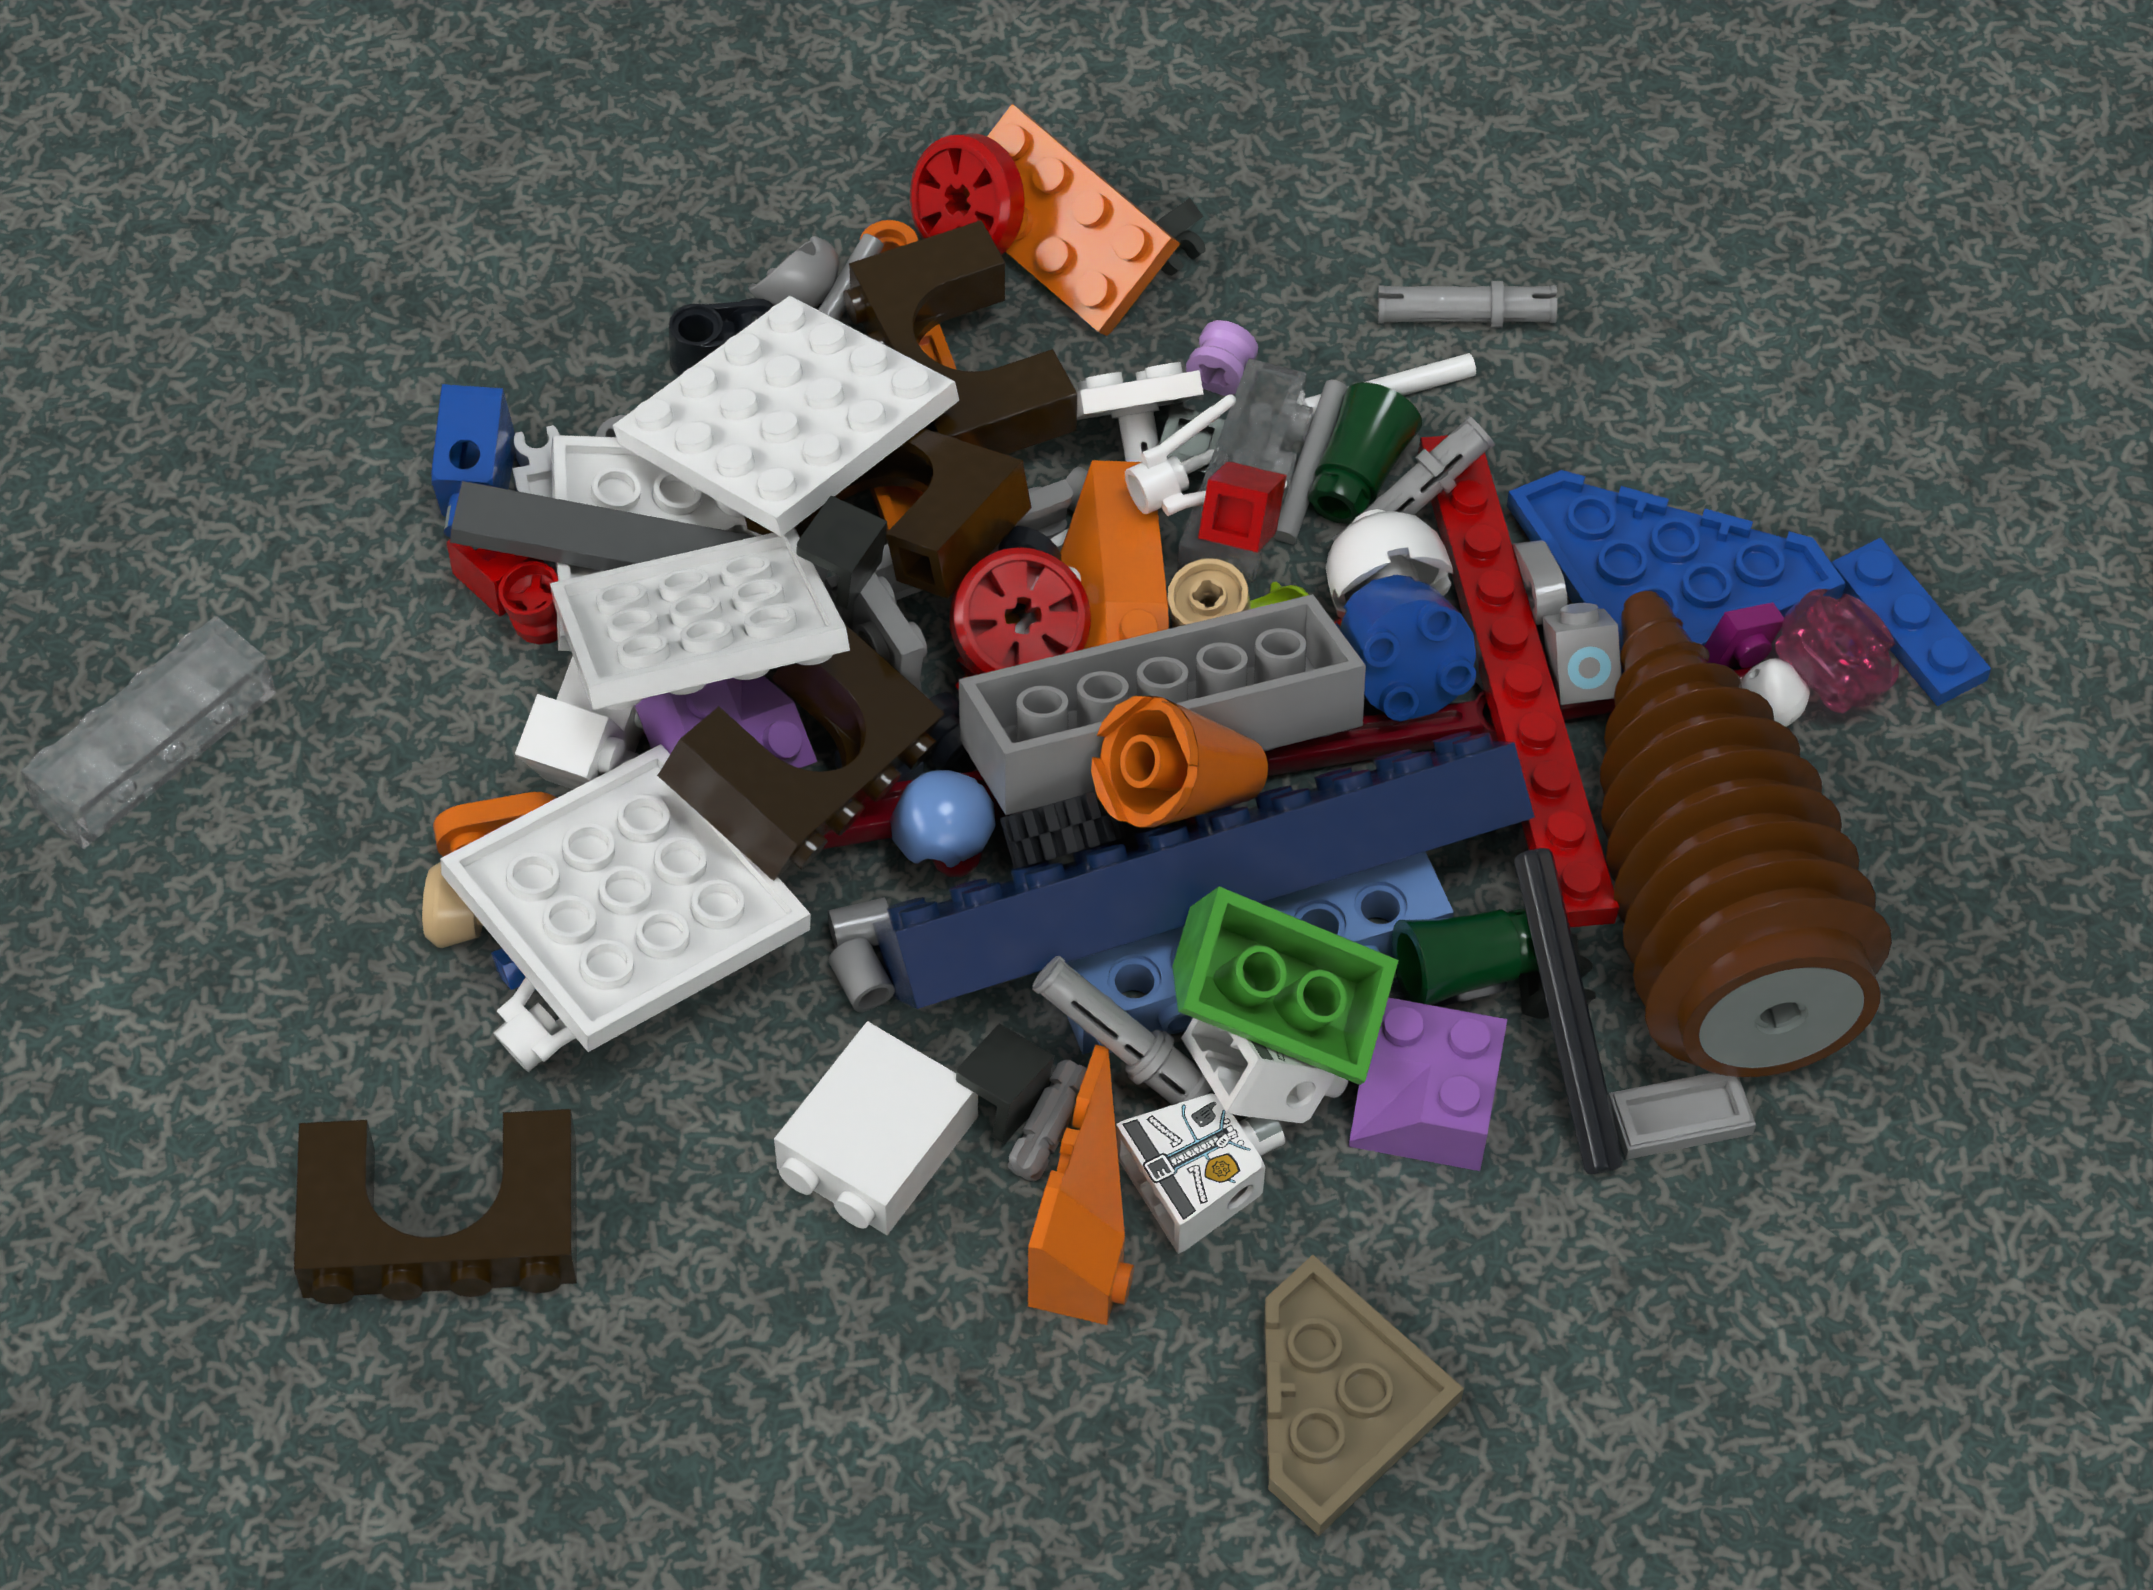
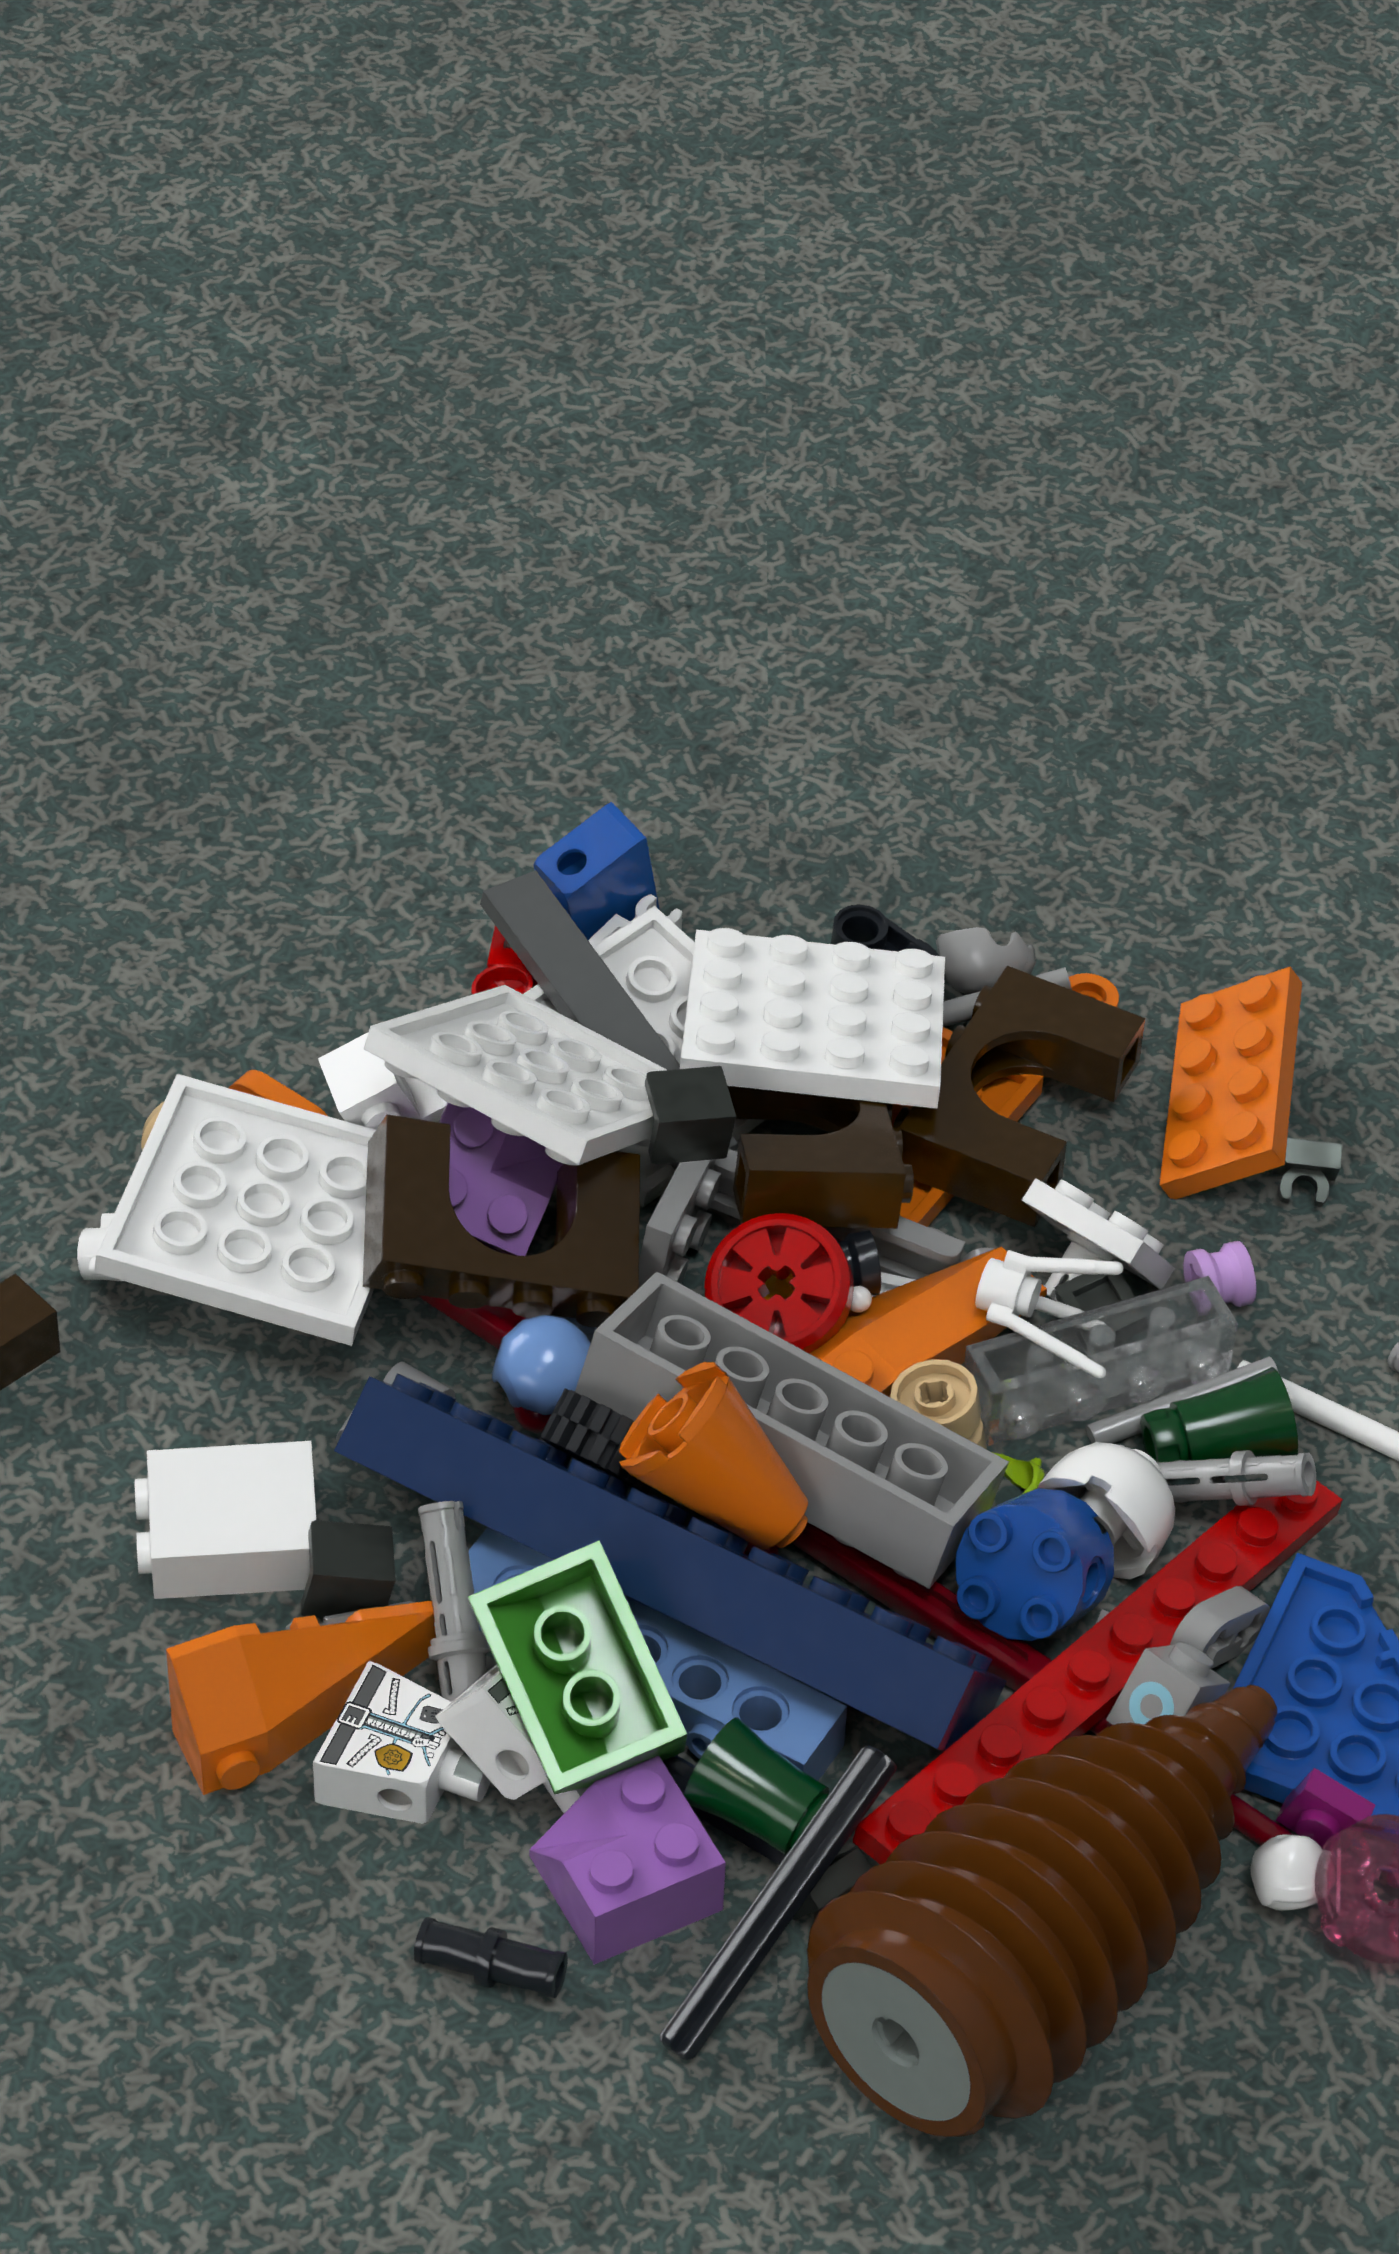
camera: 50 degrees right, 10 degrees down
(148, 731) = (164, 860): clear brick -> none
(971, 164) = (1180, 1005): red wheel -> none
(1242, 506) = (1040, 1356): red panel -> none
(1340, 1394) = (269, 1988): dark tan plate -> none
(1432, 1231) = (490, 1957): none -> black pin
(1680, 1114) = (786, 2074): light grey tile -> none

